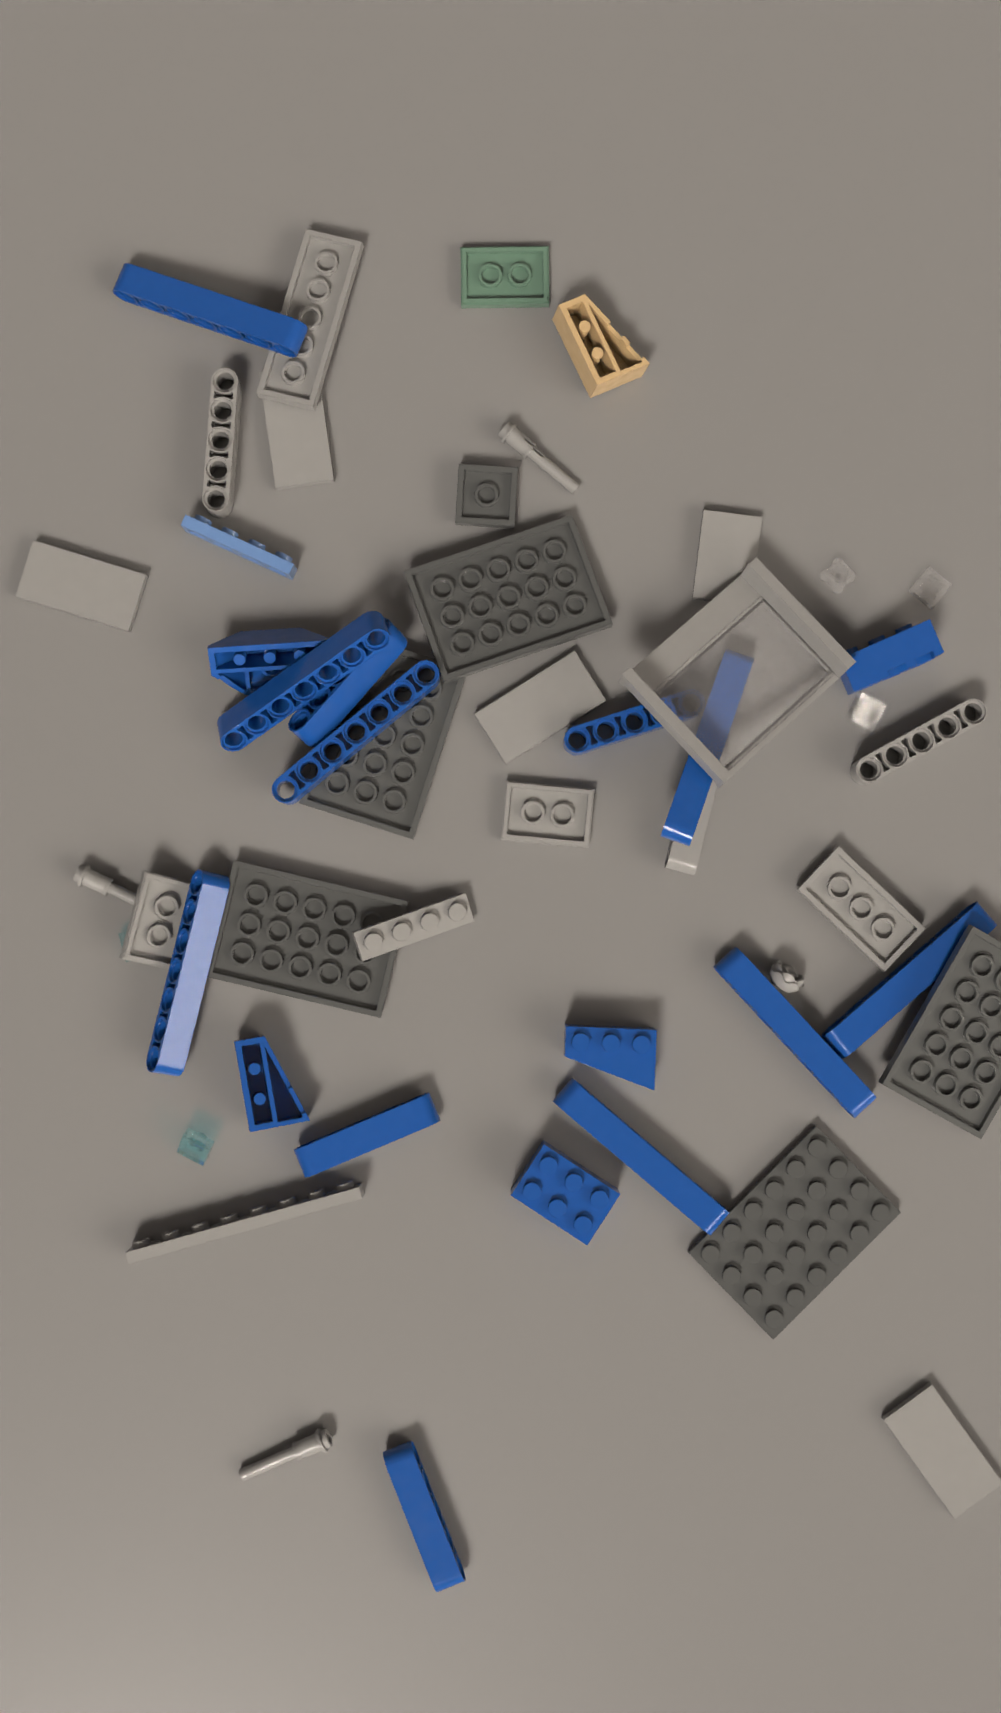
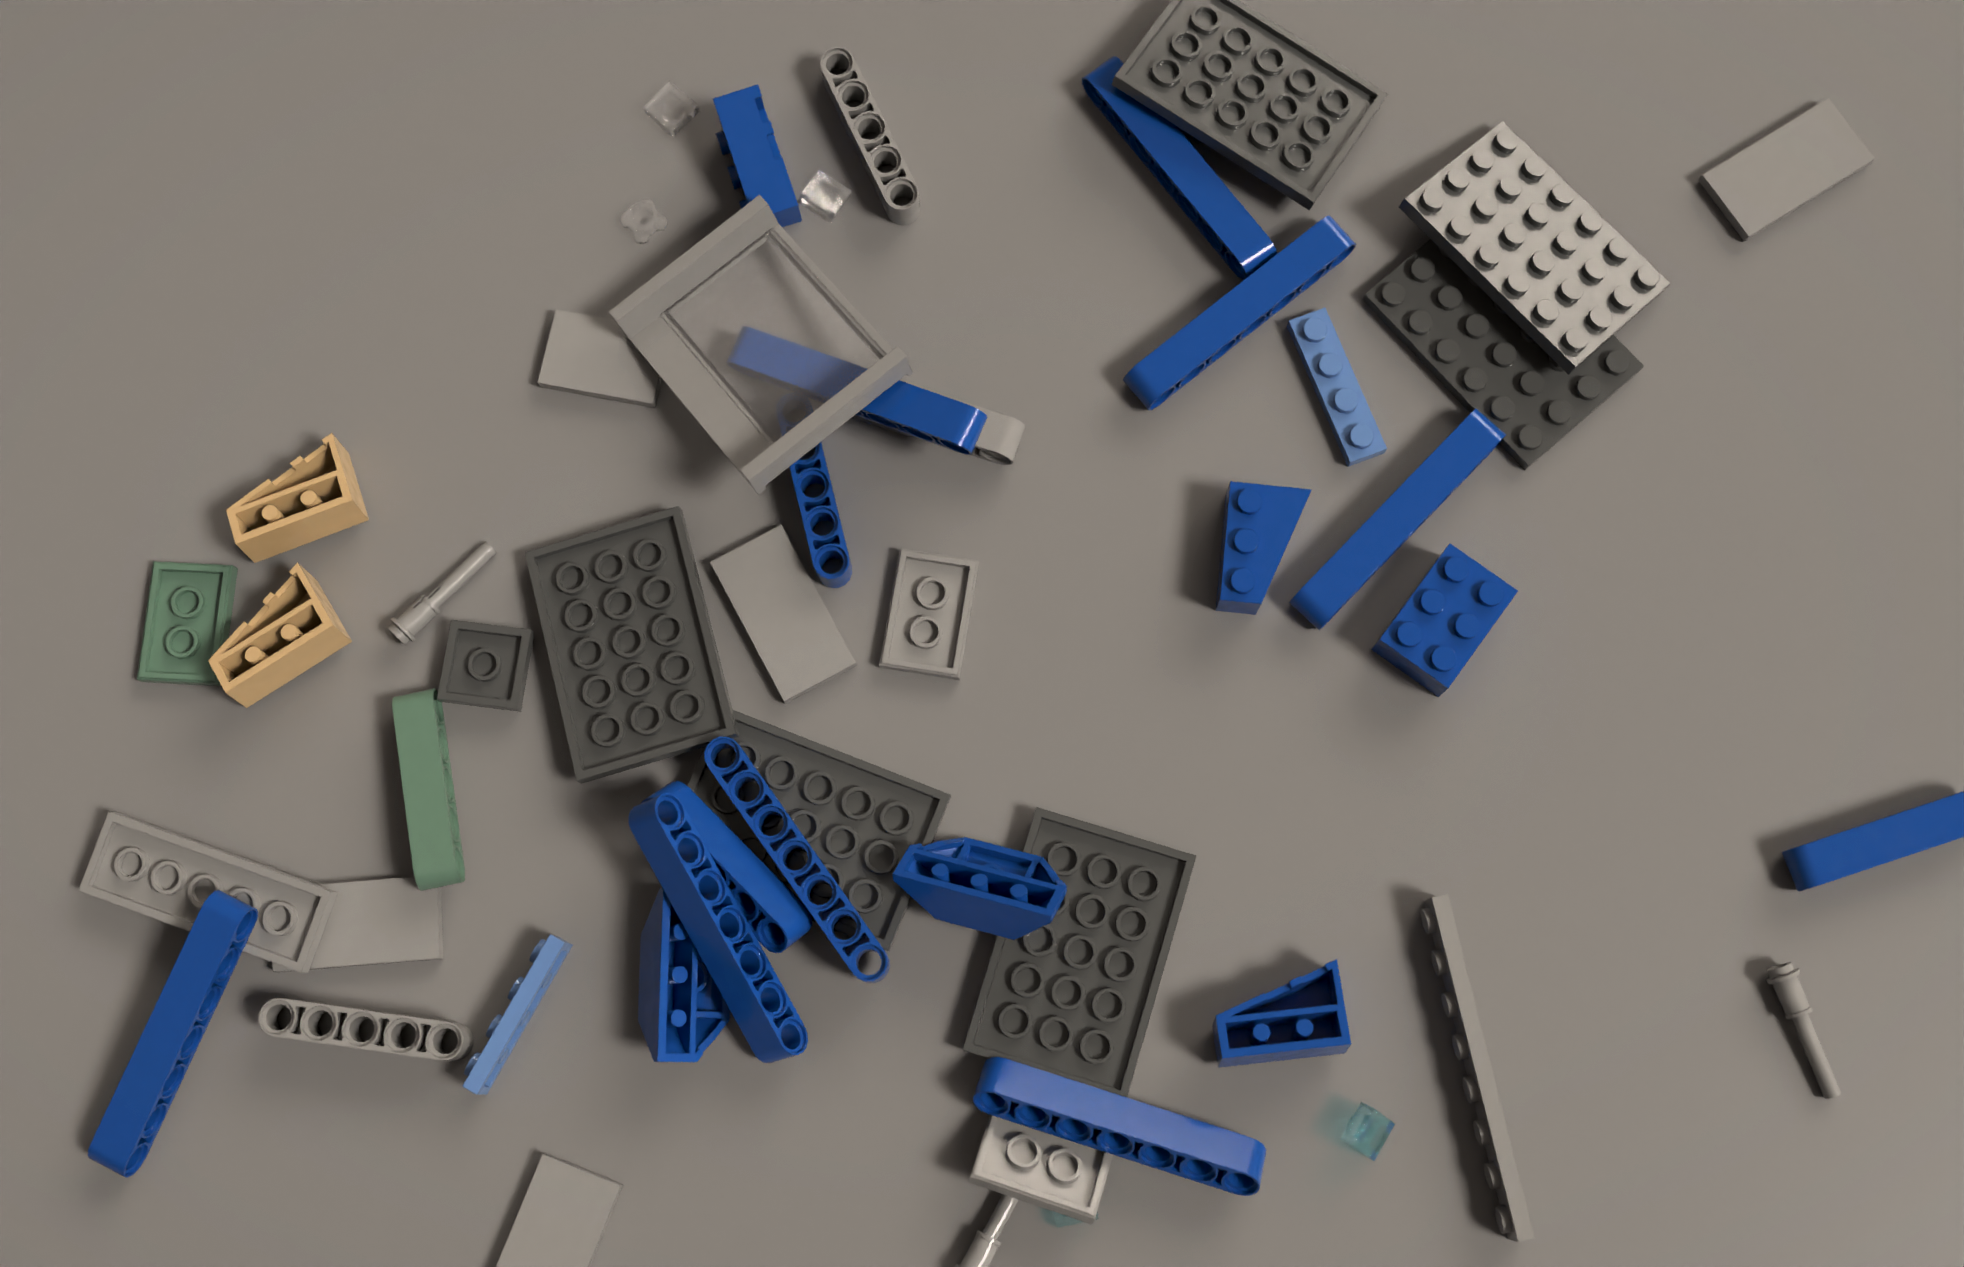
camera: 80 degrees left, 10 degrees down
(347, 866) = (981, 885): none -> blue wedge
(367, 1135) = (1358, 886): blue beam -> none
(392, 465) = (428, 790): none -> sand green beam
(412, 926) = (1072, 802): light grey plate -> none
(493, 347) = (280, 641): none -> tan wedge
(742, 1107) = (1336, 387): none -> medium blue plate
(786, 977) = (1168, 318): light grey plate -> none
(860, 909) = (1082, 221): light grey plate -> none
(861, 1254) = (1534, 246): none -> plate

